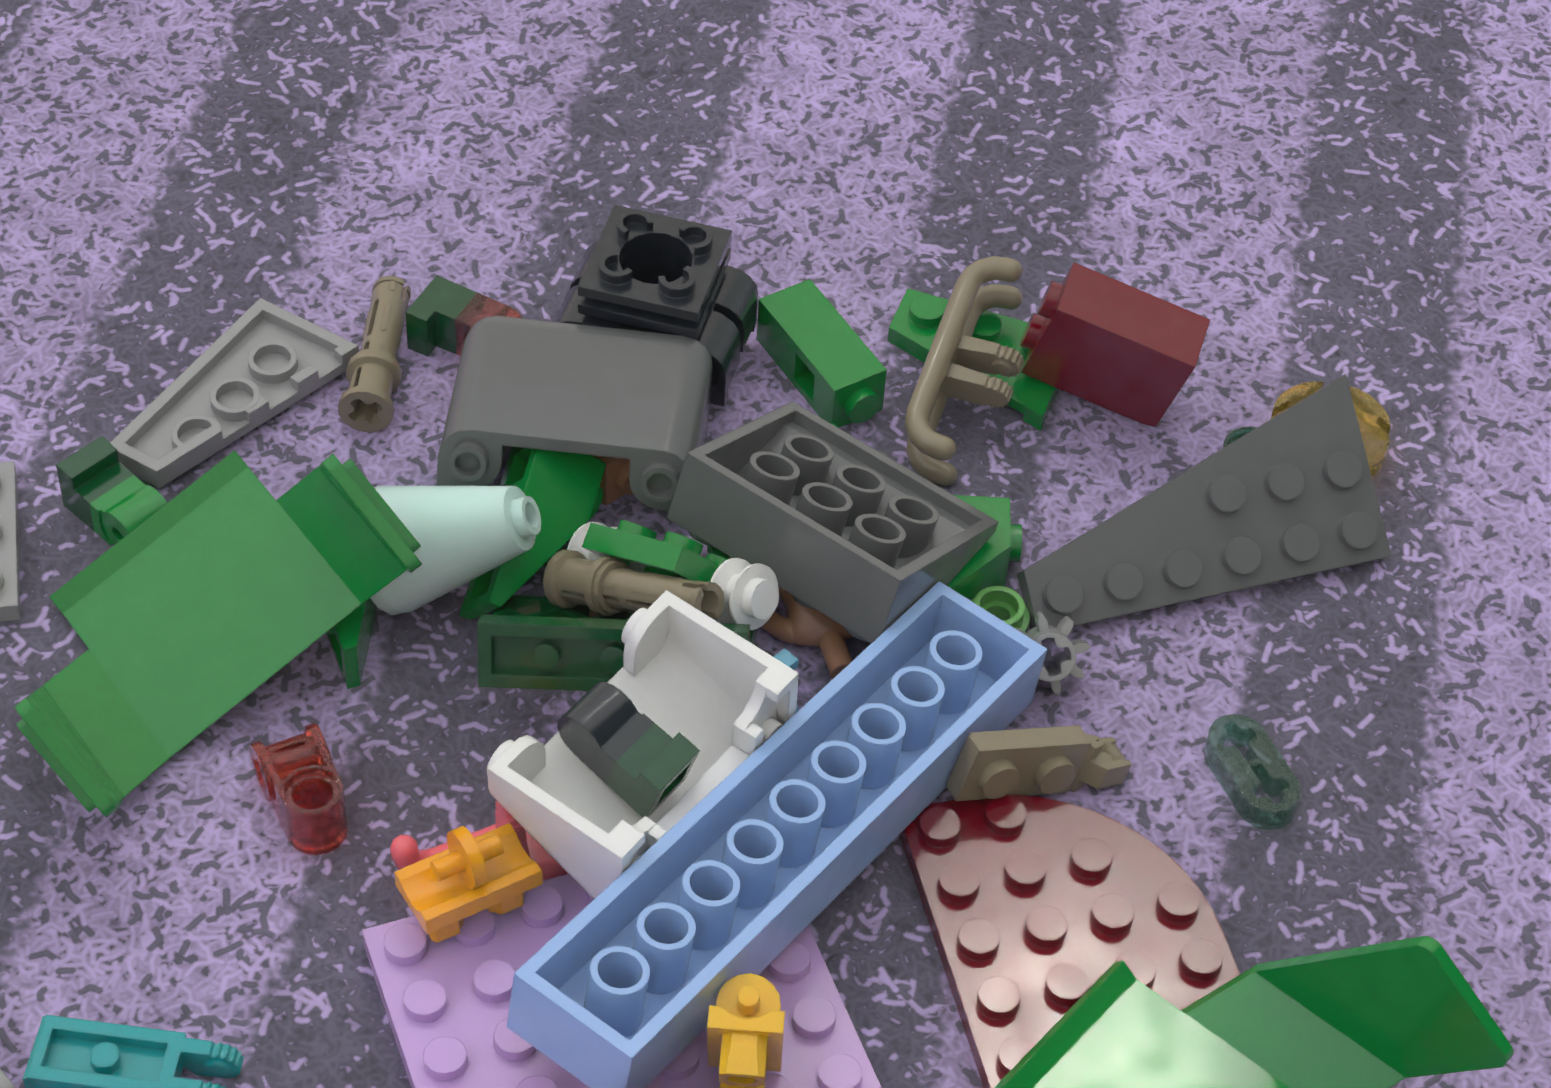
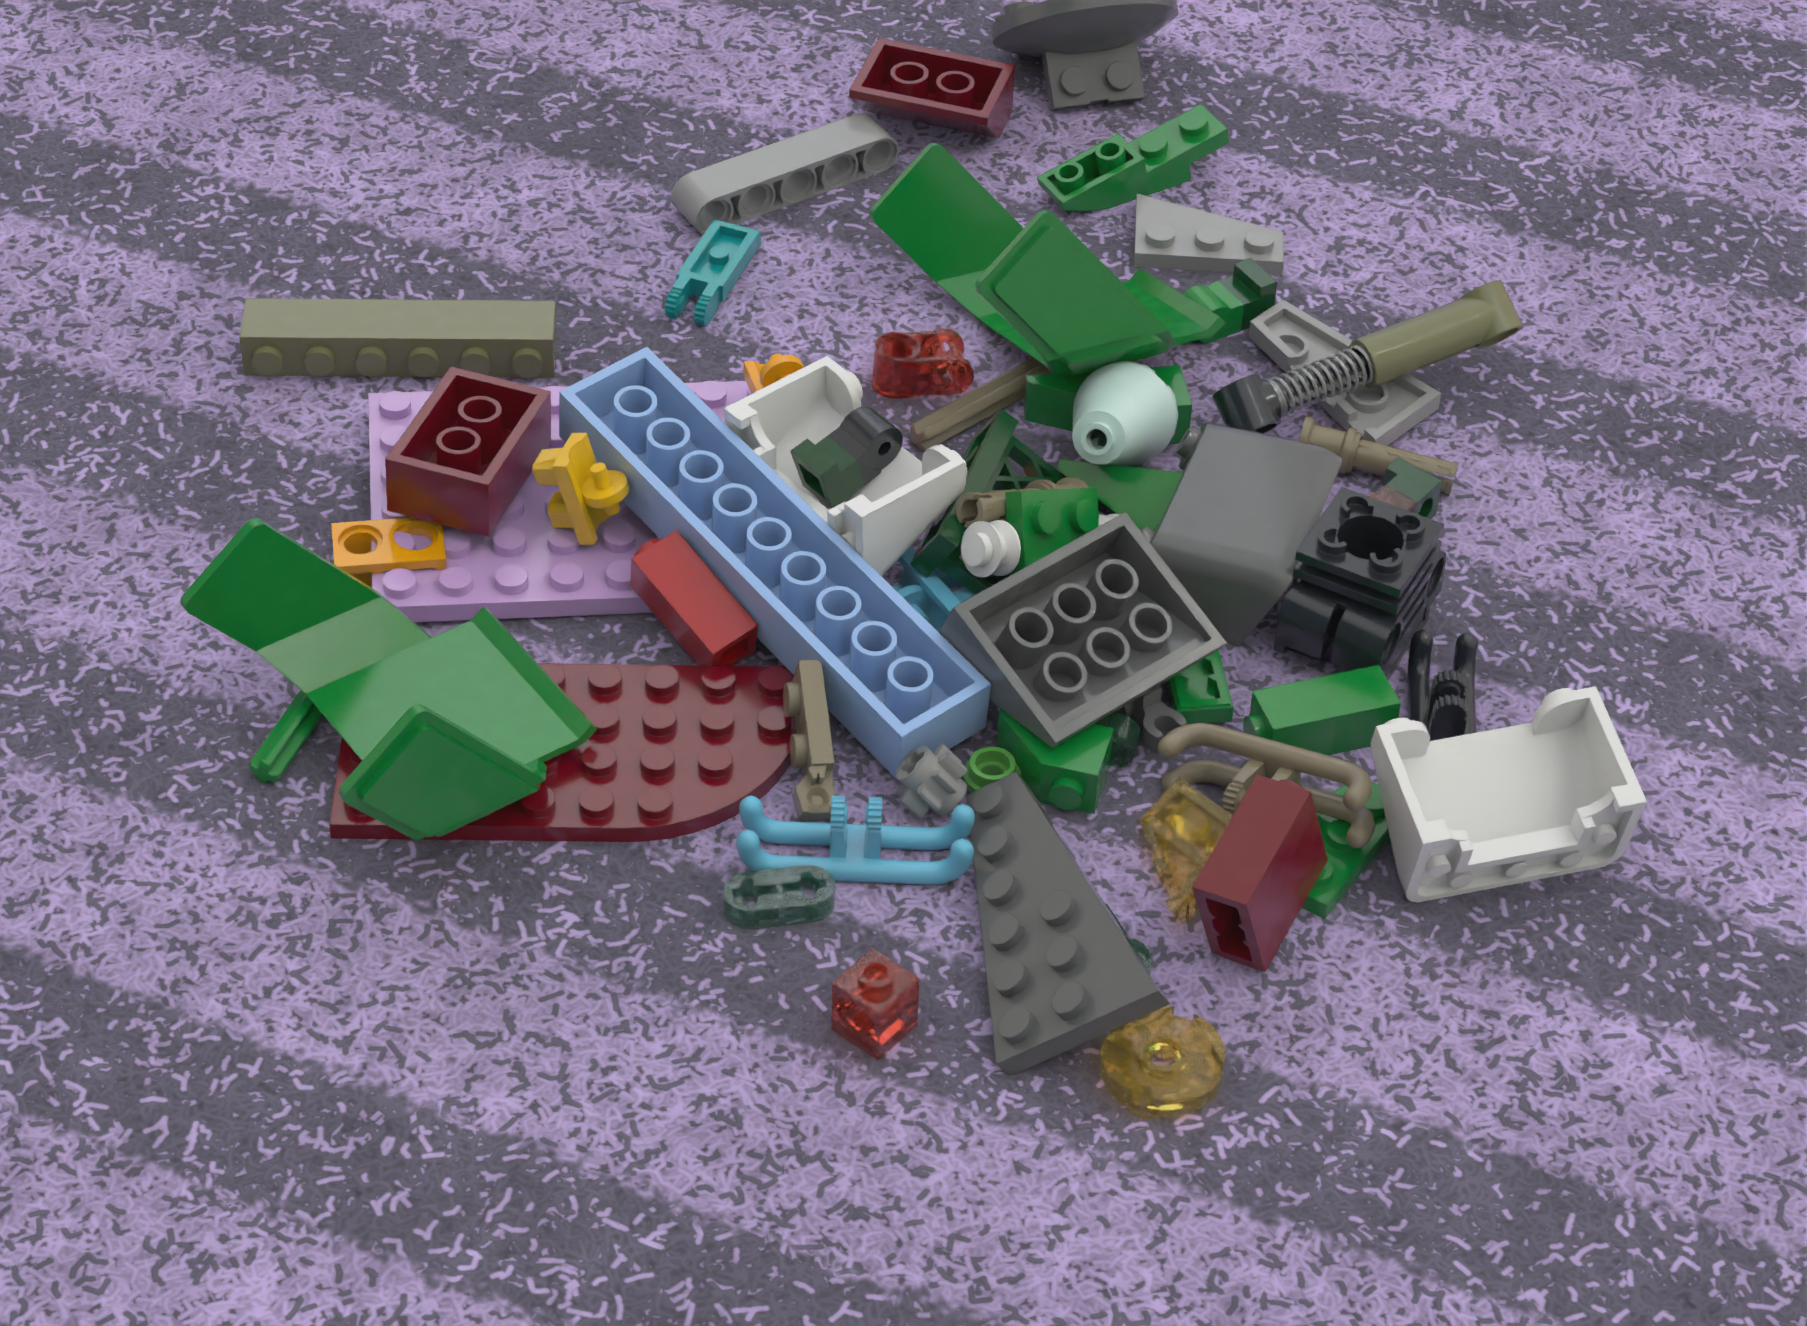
camera: 105 degrees right, 5 degrees down
(244, 332) = (1472, 321): none -> piece
(358, 726) = (974, 406): none -> dark tan axle
(794, 267) = (1450, 703): none -> black piece
(864, 914) = (692, 602): none -> red brick
(905, 162) = (1507, 798): none -> white windscreen
(1047, 434) = (1183, 834): none -> clear yellow wing
(1152, 709) = (858, 846): none -> medium azure piece
(1382, 647) = (875, 1004): none -> clear red brick

